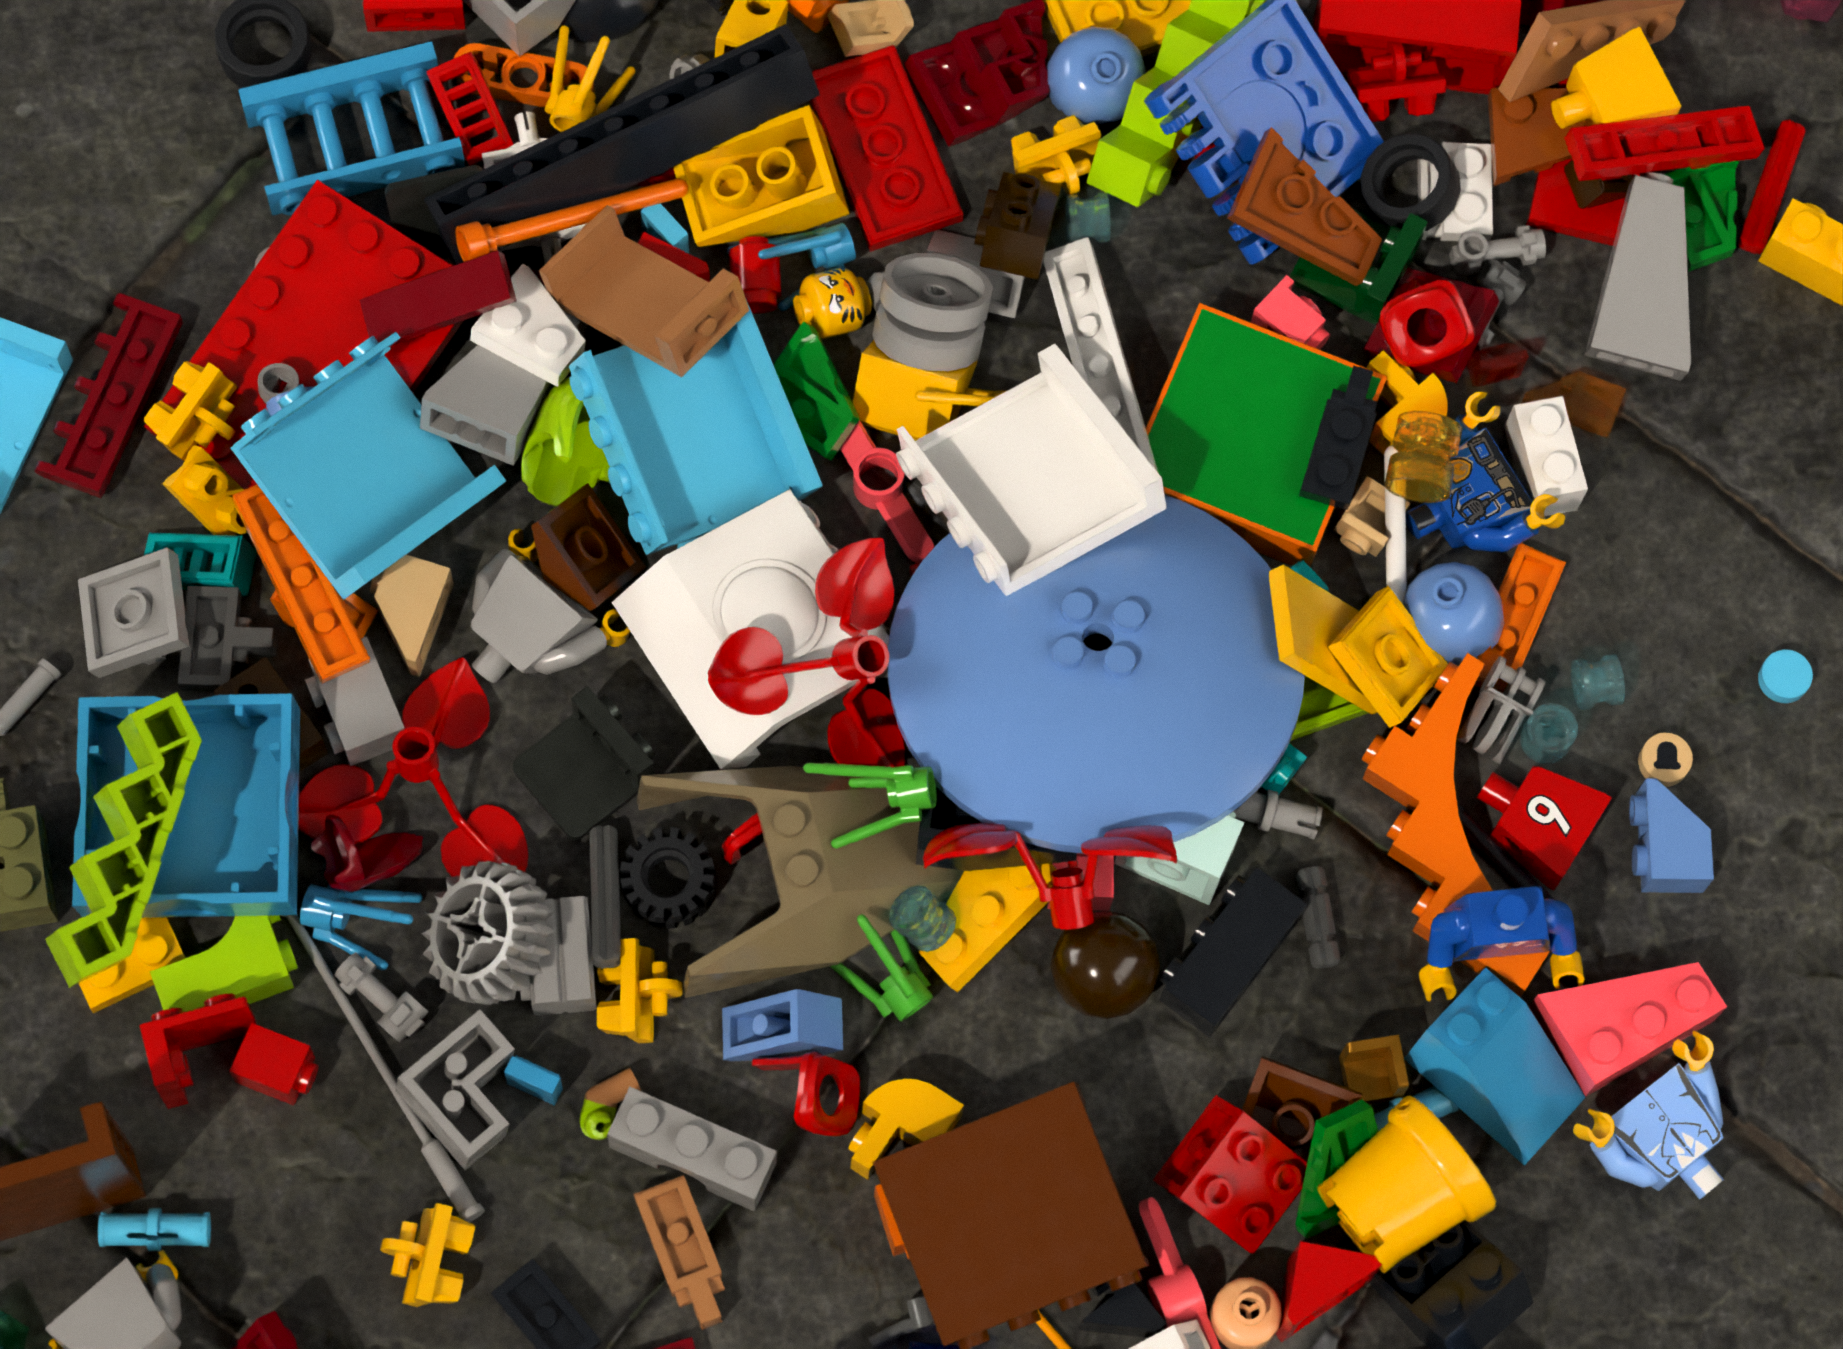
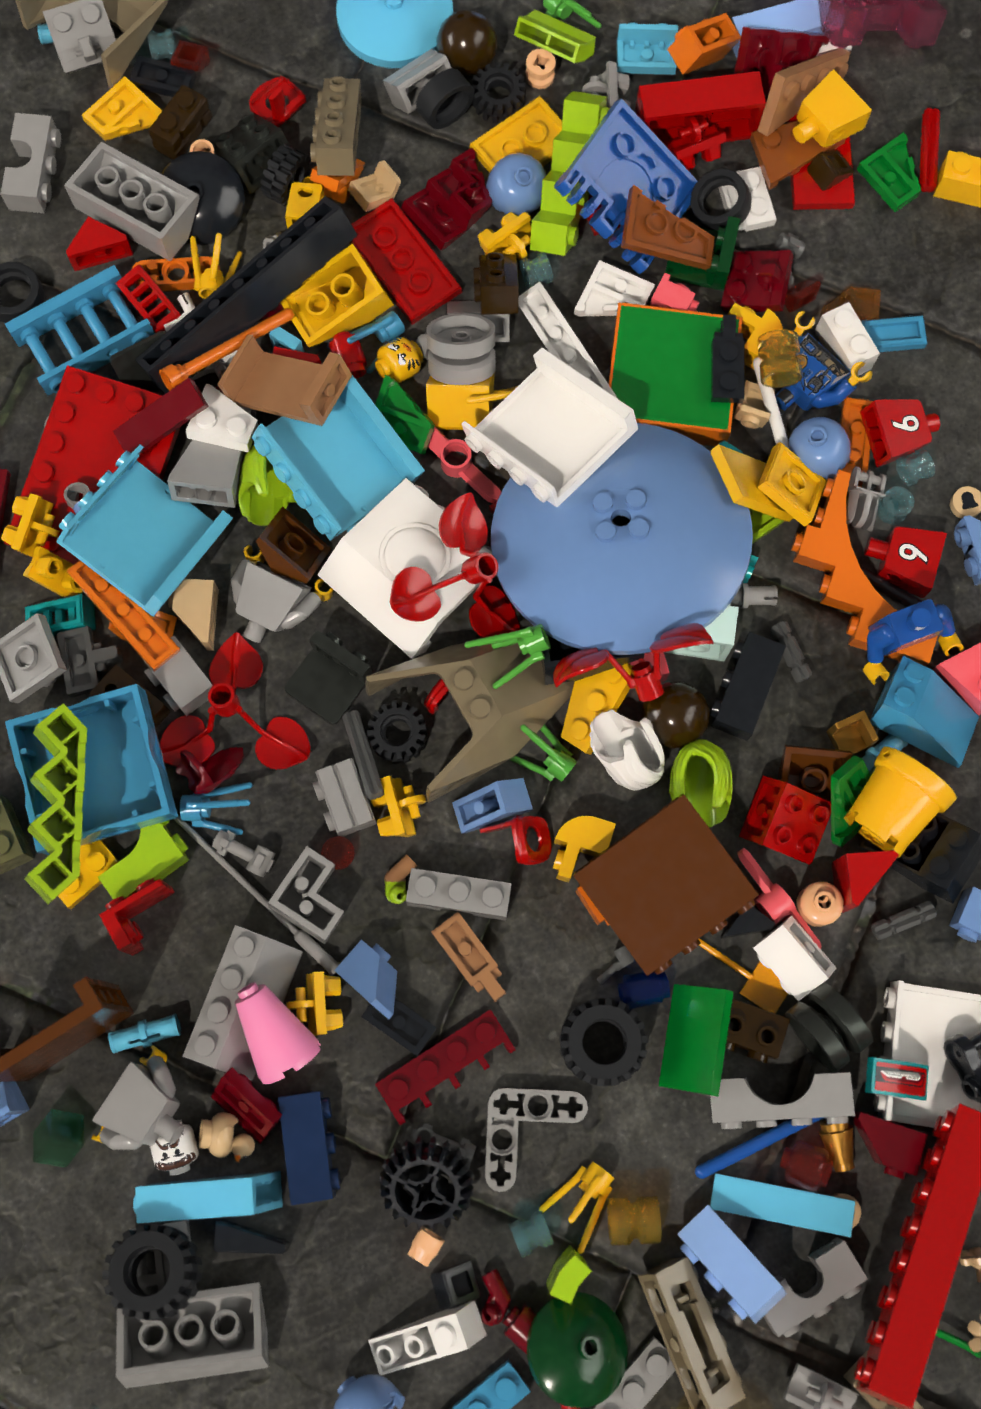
camera: 10 degrees left, 5 degrees up
(274, 1064) = (190, 912): red brick -> none
(318, 1222) = (218, 1033): none -> light grey slope
(350, 1276) = (273, 1033): none -> bright pink cone
(495, 901) = (298, 796): light grey gear -> none
(522, 1233) = (371, 976): none -> medium blue slope
(527, 1034) = (338, 851): none -> clear red plate
(533, 1079) = (350, 877): dark azure tile -> none
(922, 918) = (558, 716): clear light blue wheel -> none
(1013, 997) = (627, 749): none -> white hair
(1121, 1077) = (704, 778): none -> lime hair
(1198, 274) = (608, 288): none -> white wing
(1409, 298) = (743, 267): red piece -> none
(1475, 249) = (769, 229): light grey bar -> none
(1585, 614) = (897, 428): none -> red torso
(1629, 464) = (897, 333): none -> dark azure tile
(1645, 288) = (876, 223): light grey slope -> none
(1664, 143) = (865, 136): red hinge -> none

